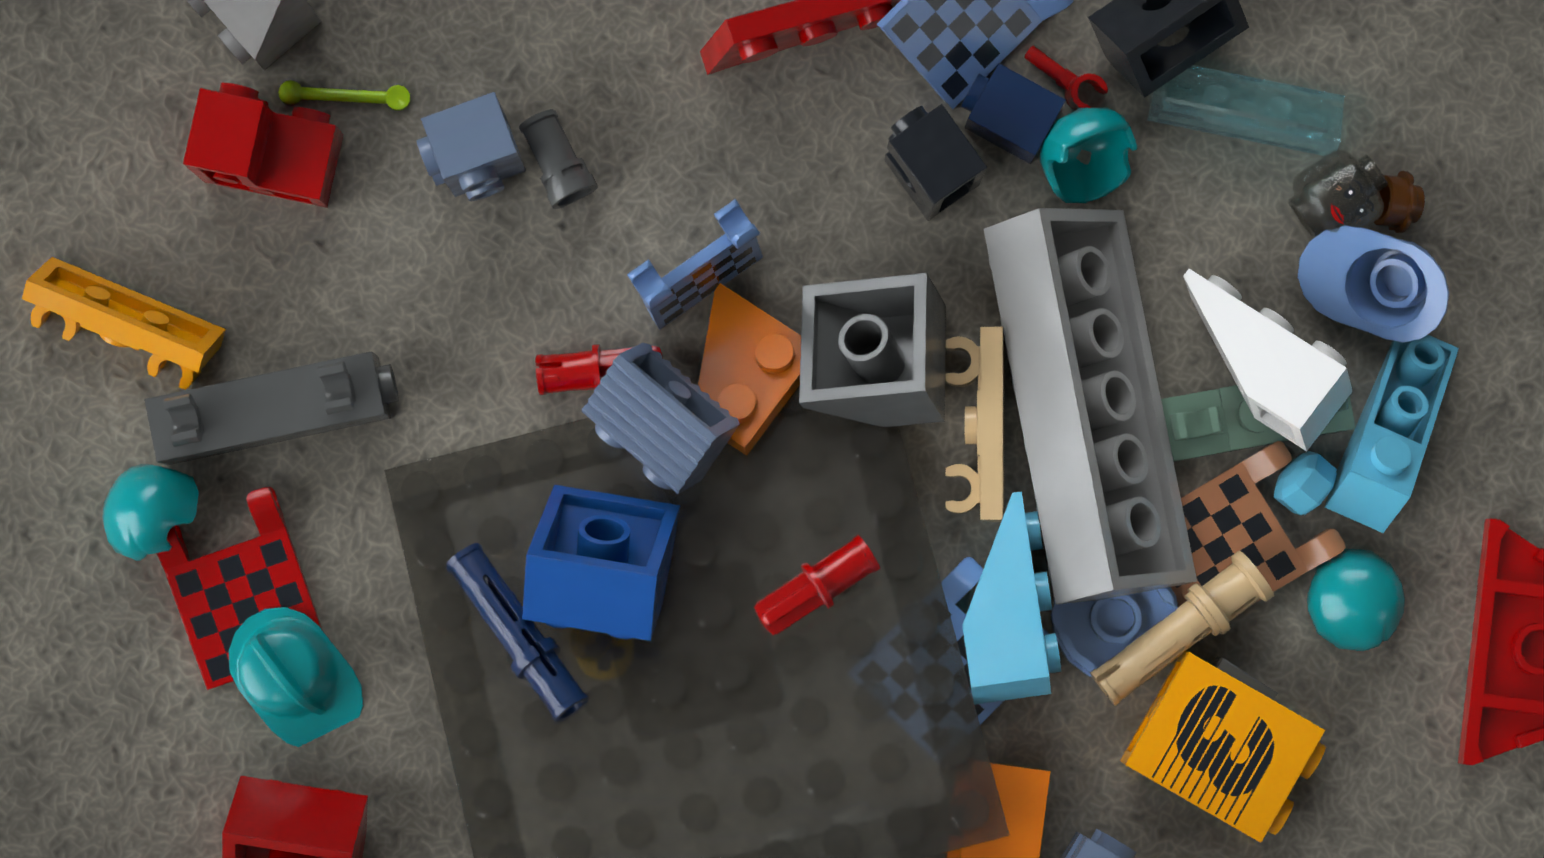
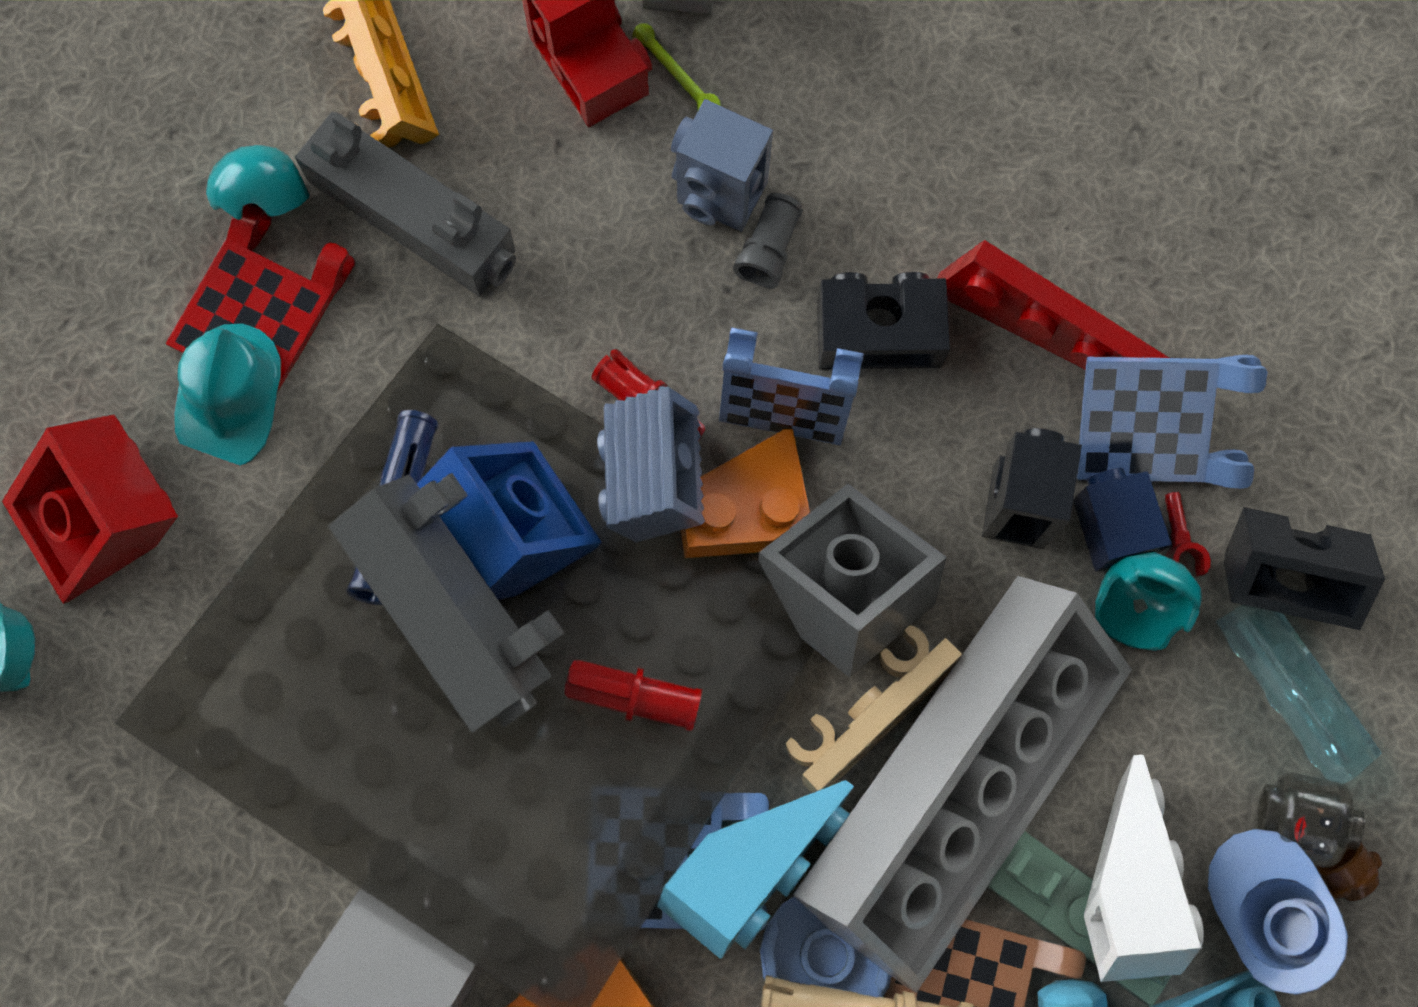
camera: 45 degrees right, 10 degrees down
(634, 659) = (443, 600): none -> dark grey brick
(692, 175) = (913, 298): none -> black brick

